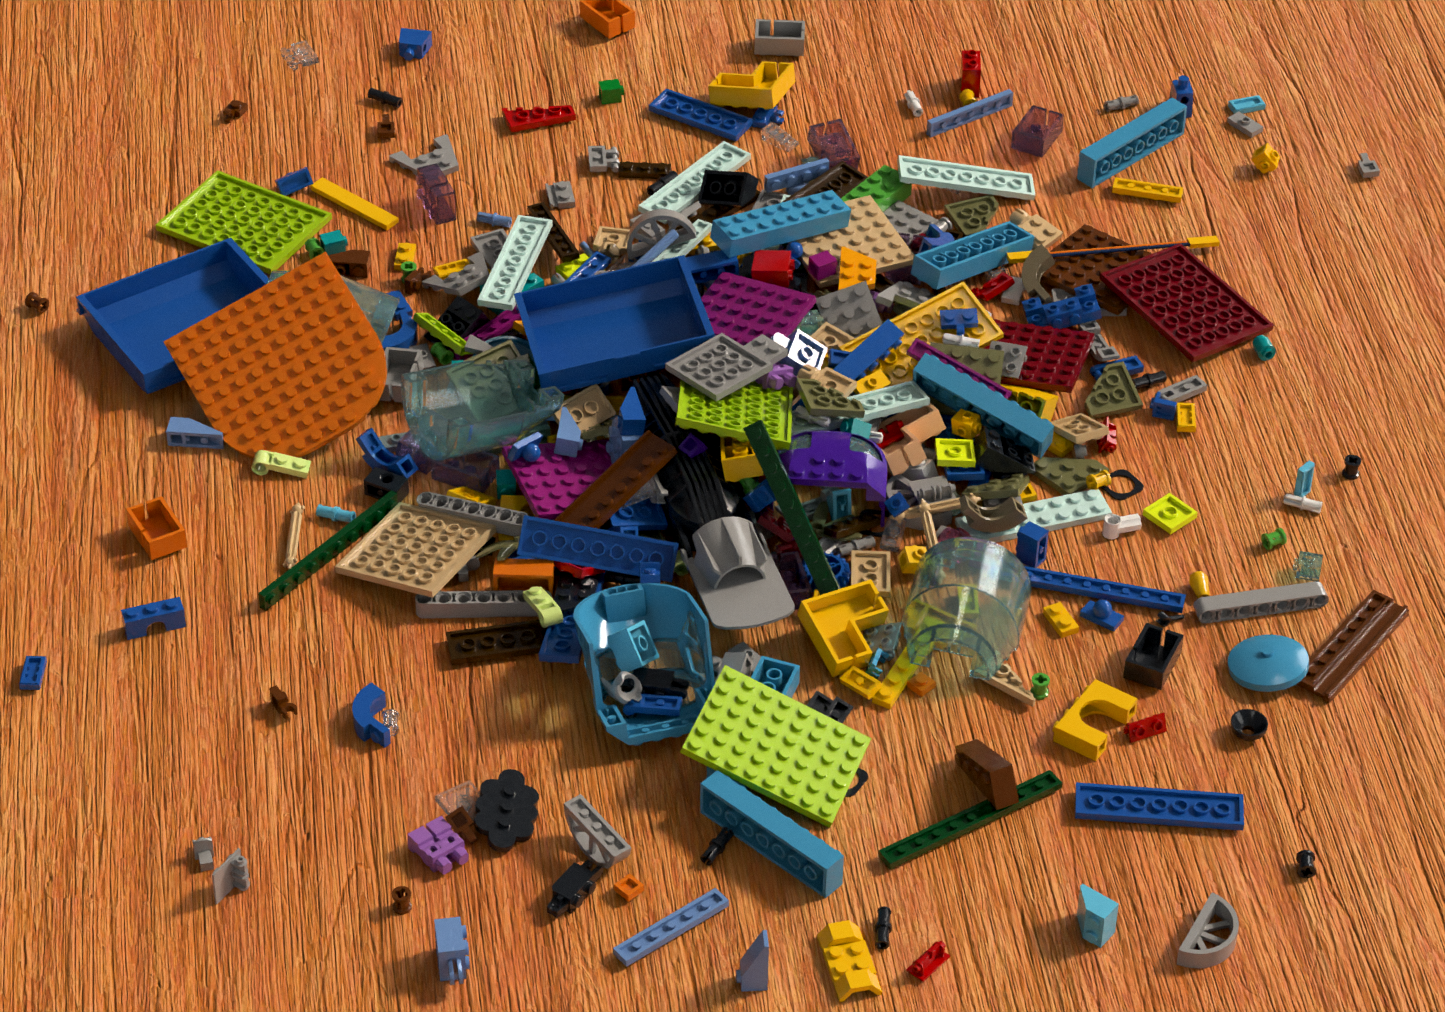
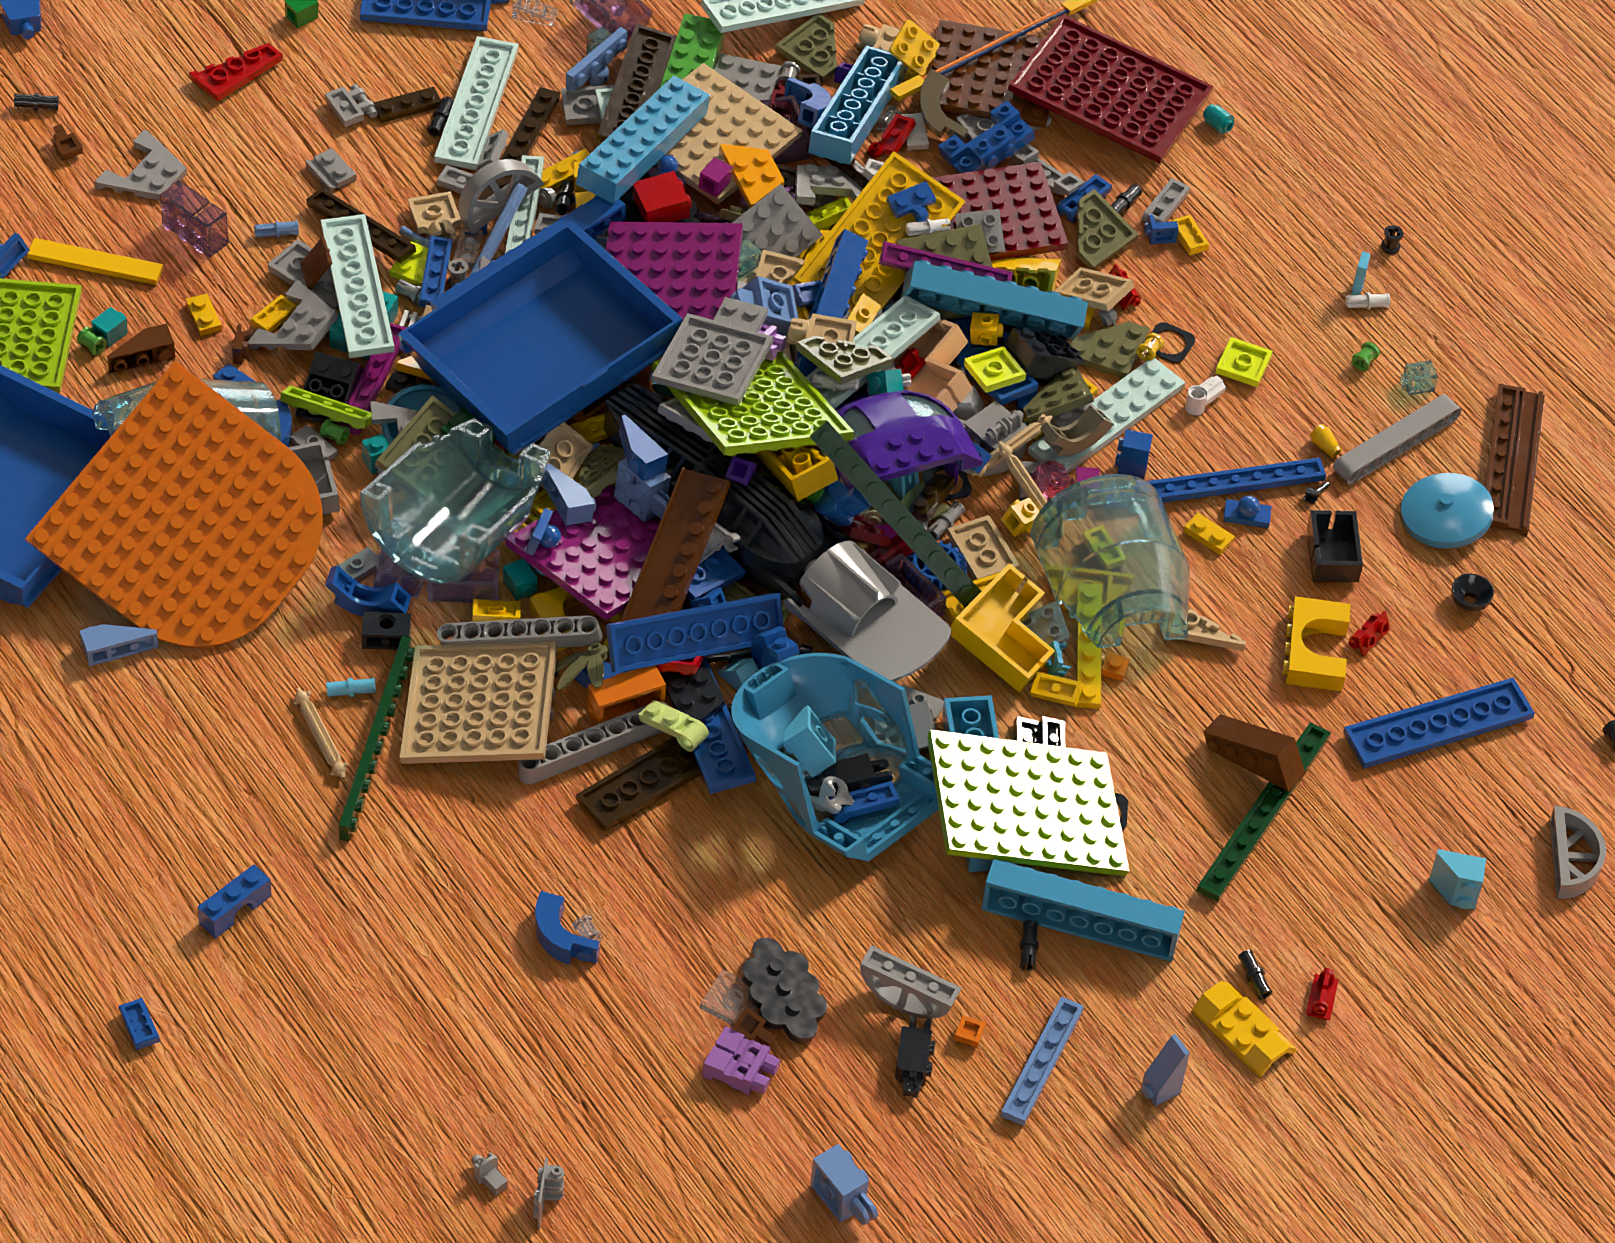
camera: 30 degrees left, 10 degrees up
(160, 532) = (161, 783): orange piece -> none
(279, 462) = (239, 644): yellowish green plate -> none
(280, 702) = (449, 953): reddish brown plate -> none
(400, 899) = (741, 1144): reddish brown bush -> none
(407, 267) = (225, 333): bright green bush -> none
(498, 242) = (316, 263): none -> reddish brown piece
(727, 188) = (528, 103): black slope -> none
(892, 535) = (977, 493): clear plate -> none
(1040, 682) = (1240, 621): bright green bush -> none
(1043, 230) = (914, 49): none -> yellow bracket

